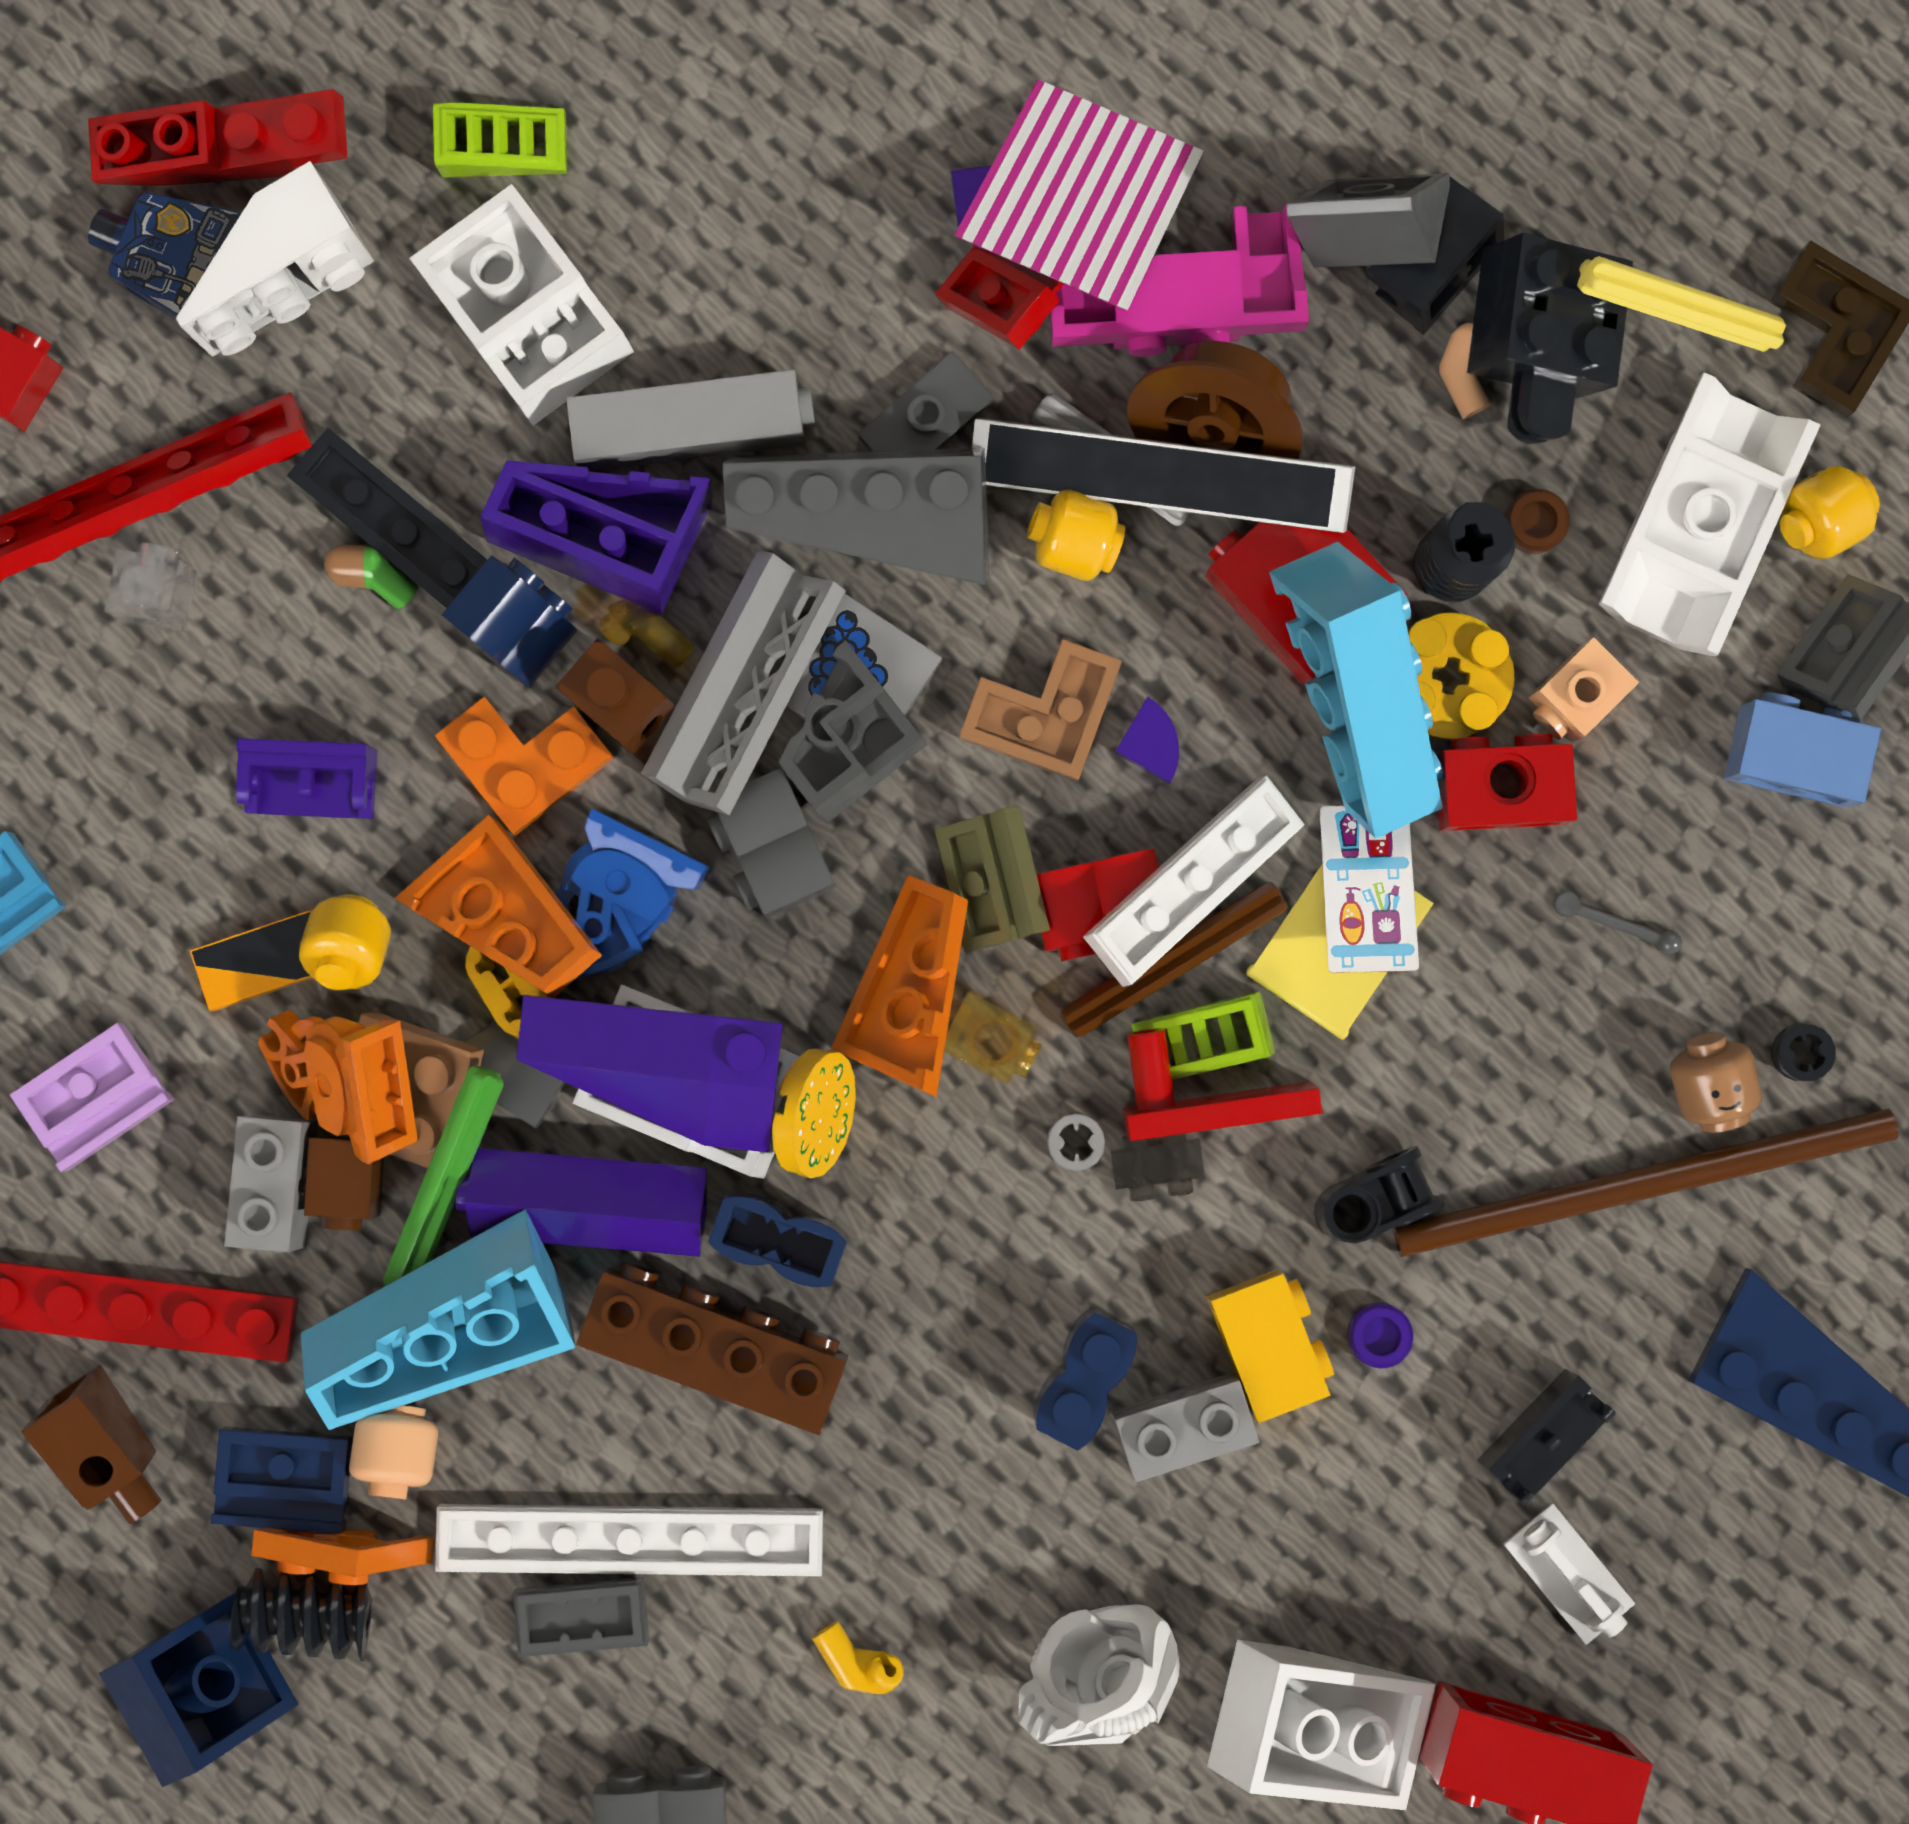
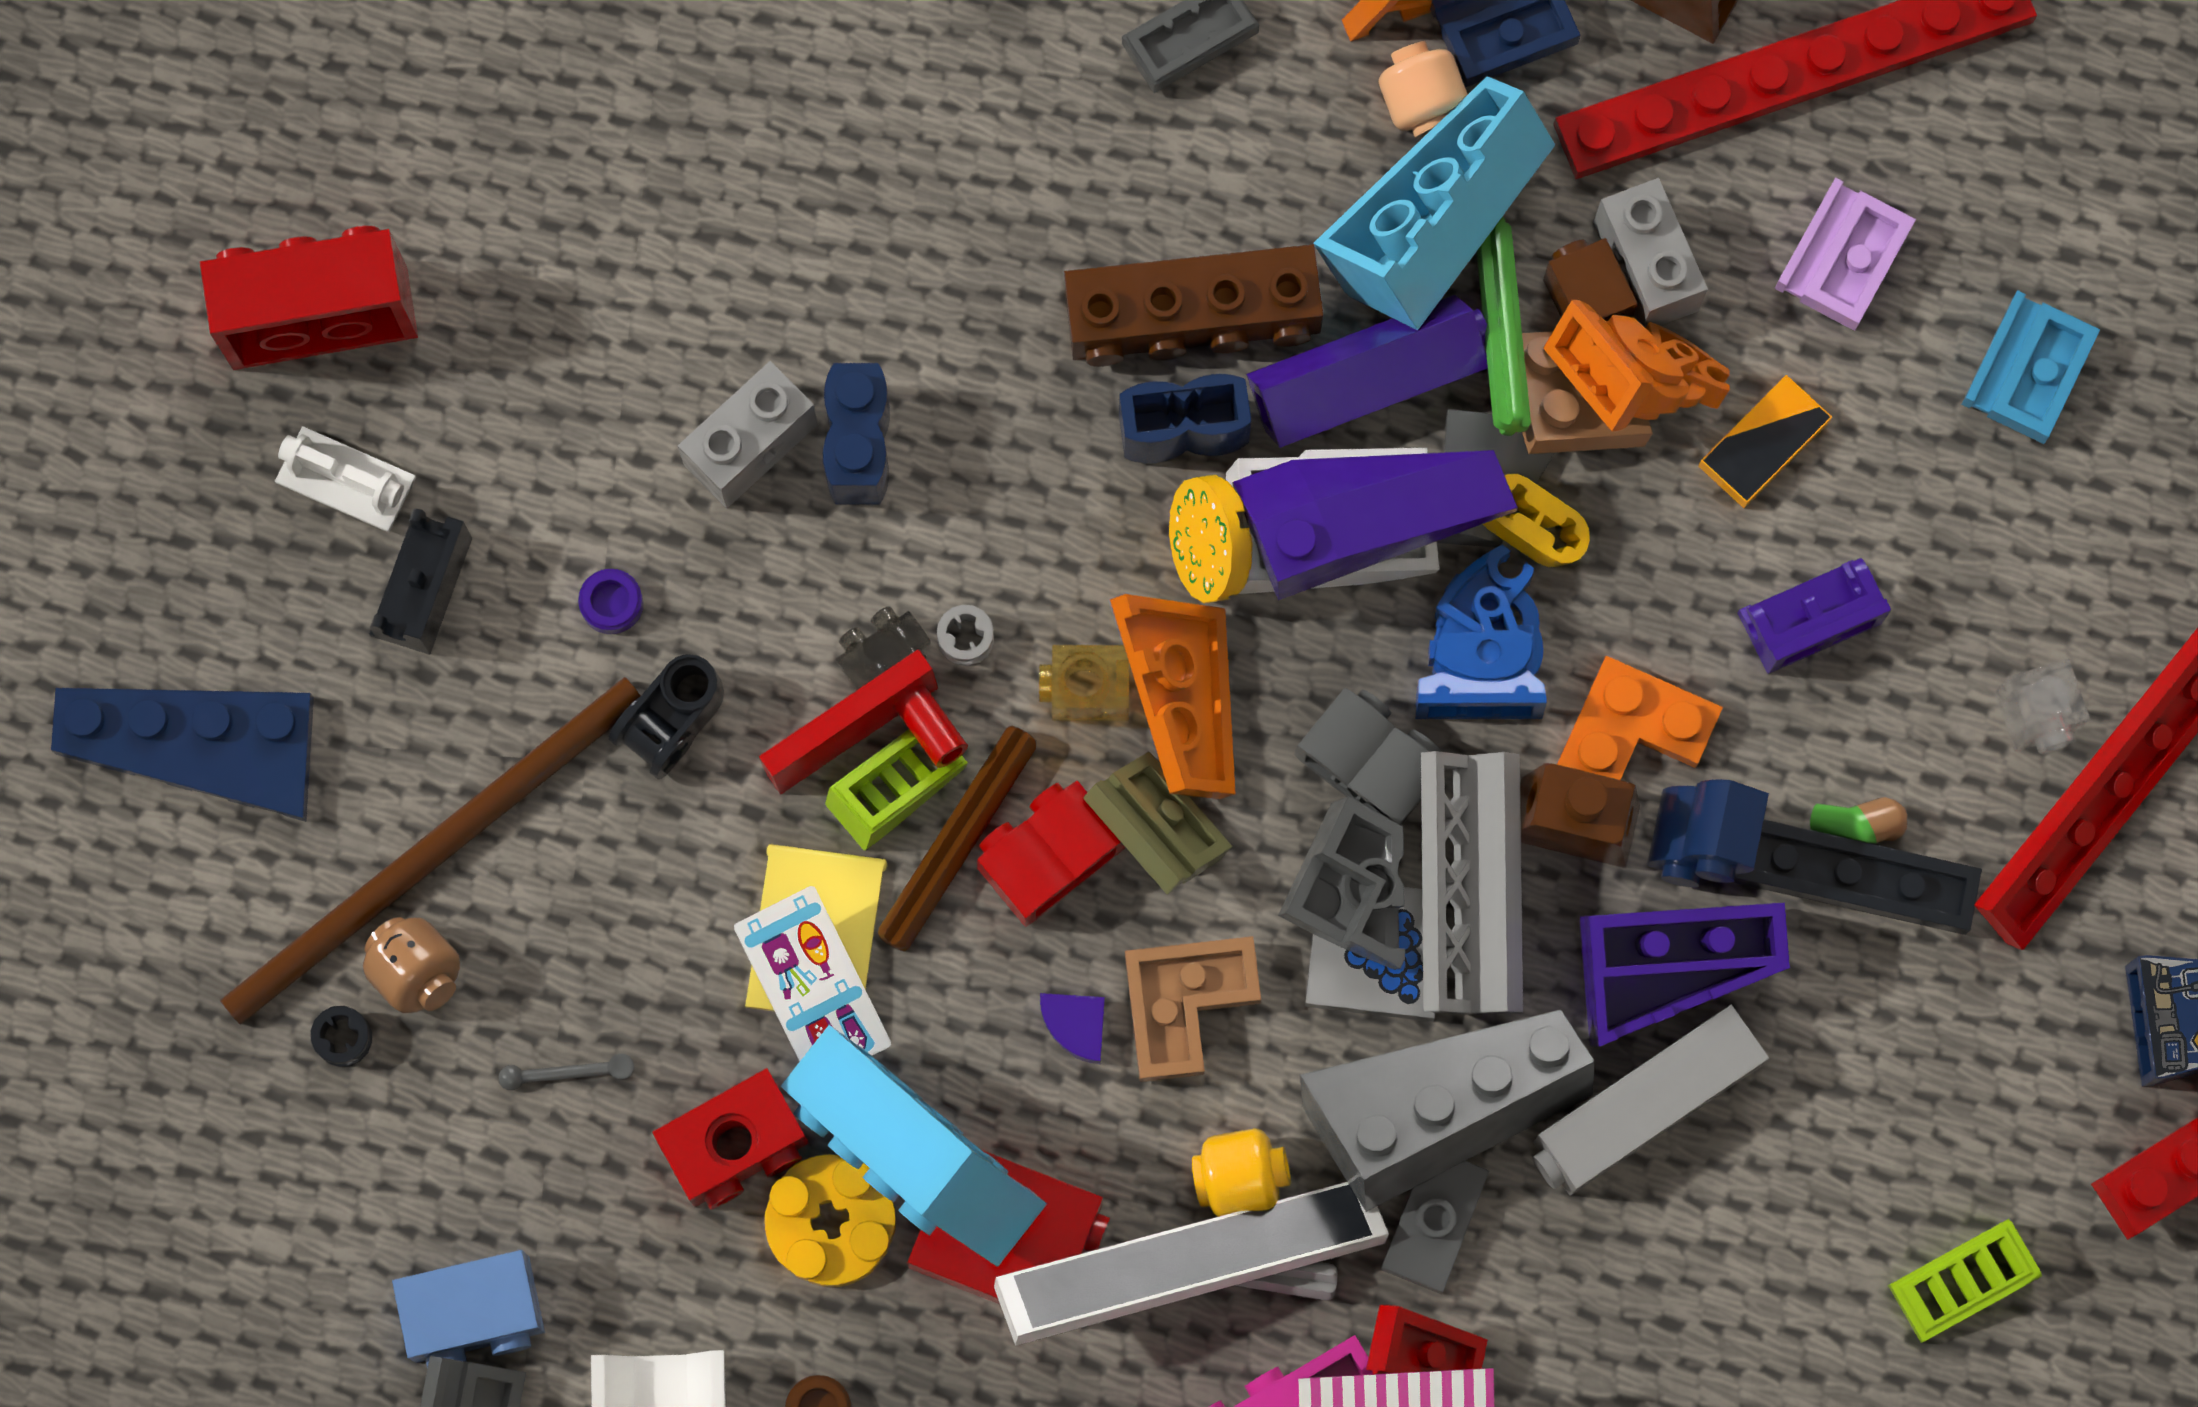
camera: 155 degrees right, 10 degrees down
(274, 260) = (2101, 1054): white slope -> none
(345, 942) = (1699, 485): yellow head -> none
(503, 908) = (1577, 581): orange wing -> none
(522, 304) = (1860, 1134): white slope -> none
(629, 1540) = (1181, 117): white tile -> none
(651, 629) = (1603, 896): clear yellow arm -> none
(855, 1667) = (933, 106): yellow arm -> none
(1099, 1676) = (720, 191): white helmet -> none
(1193, 881) = (974, 907): white tile -> none
(1217, 399) = (1170, 1349): reddish brown piece -> none
(1270, 1344) = (706, 542): yellow brick -> none
(1319, 1727) = (506, 244): white slope -> none
(1481, 552) = (882, 1301): black piece -> none
(1581, 692) = (702, 1260): light nougat brick -> none

